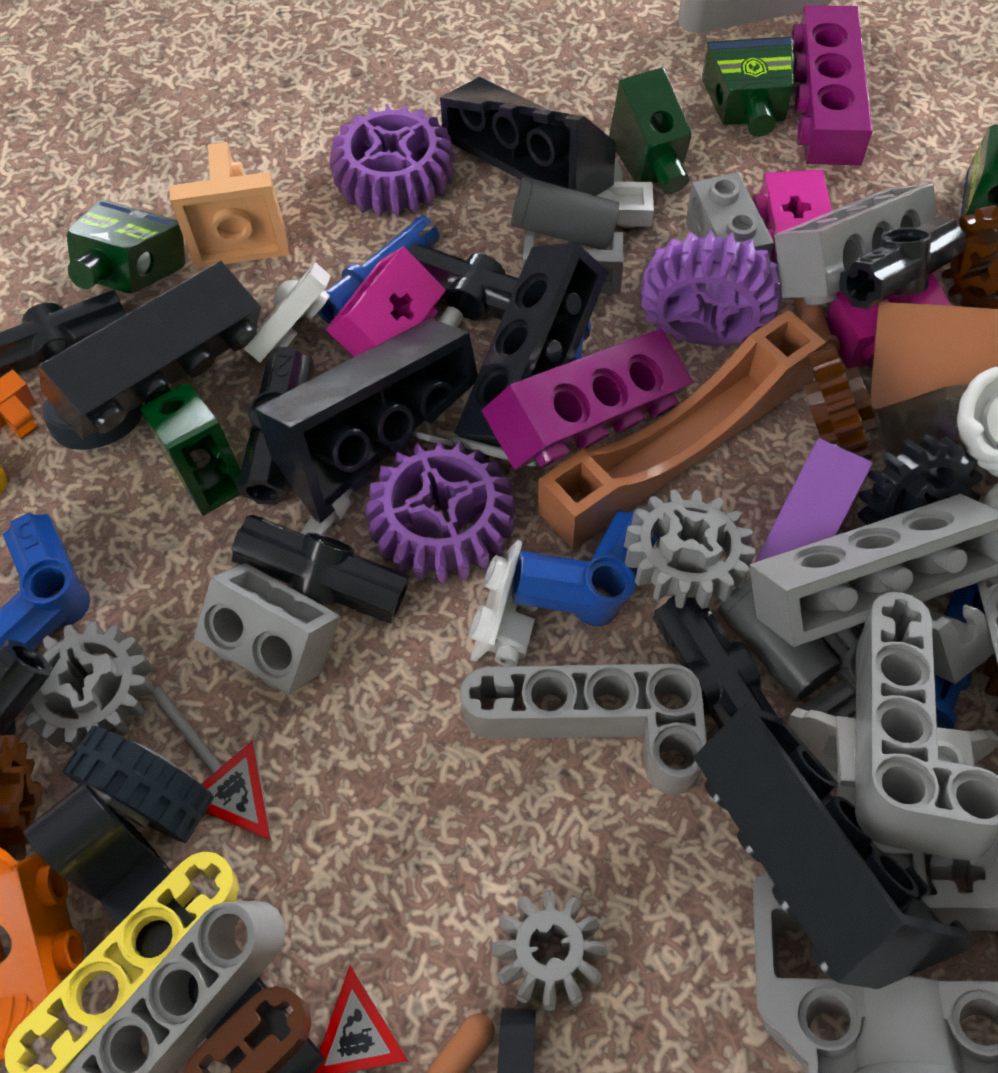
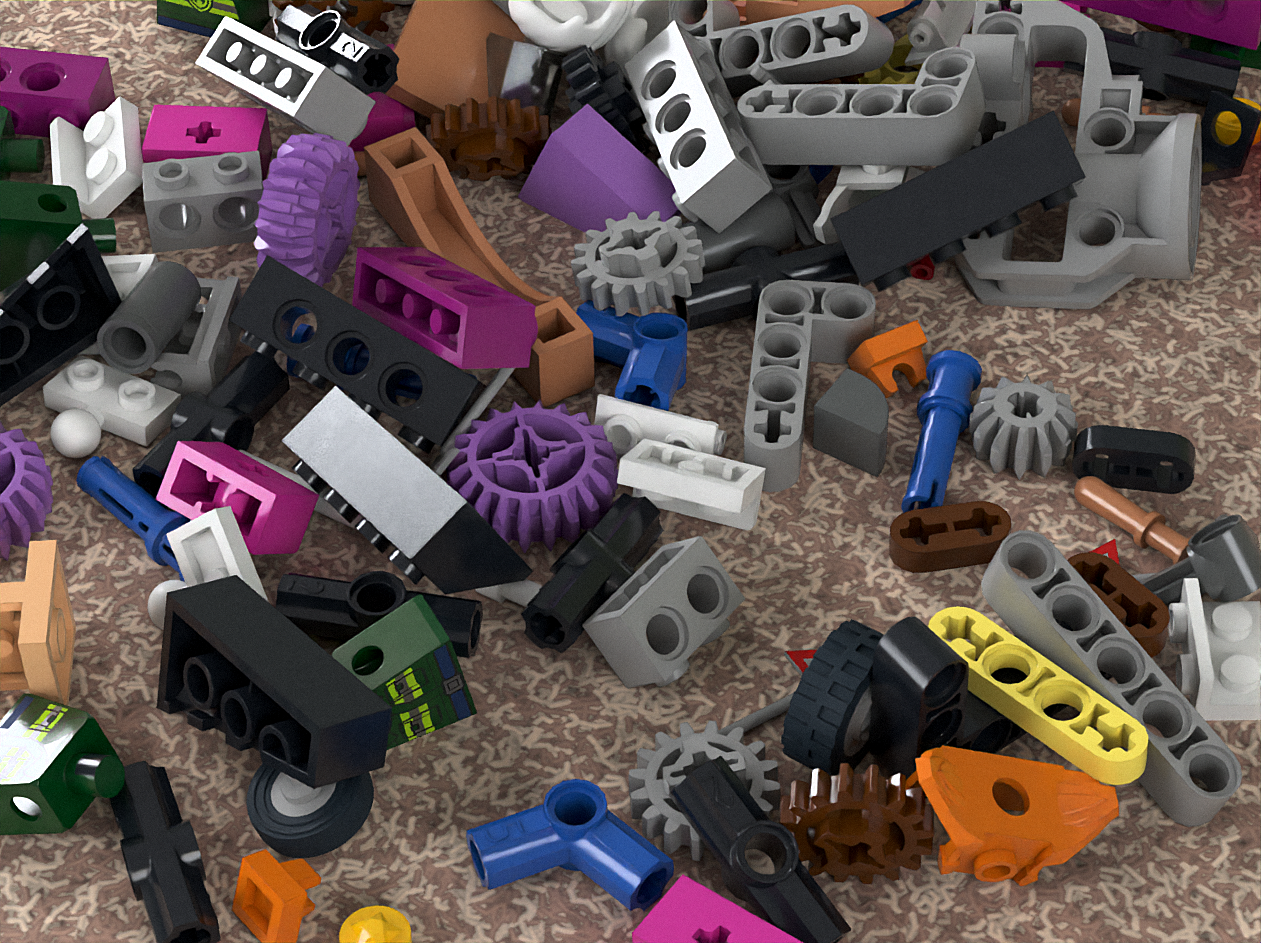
camera: 85 degrees left, 15 degrees down
(387, 888) = (948, 536): none -> reddish brown beam
(422, 631) = (694, 483): none -> white bracket
(495, 234) = (103, 398): none -> white plate
(534, 777) = (853, 423): none -> dark grey brick
(562, 865) = (943, 416): none -> blue pin
(641, 803) = (892, 351): none -> orange tile
(763, 150) = (101, 160): none -> white bracket

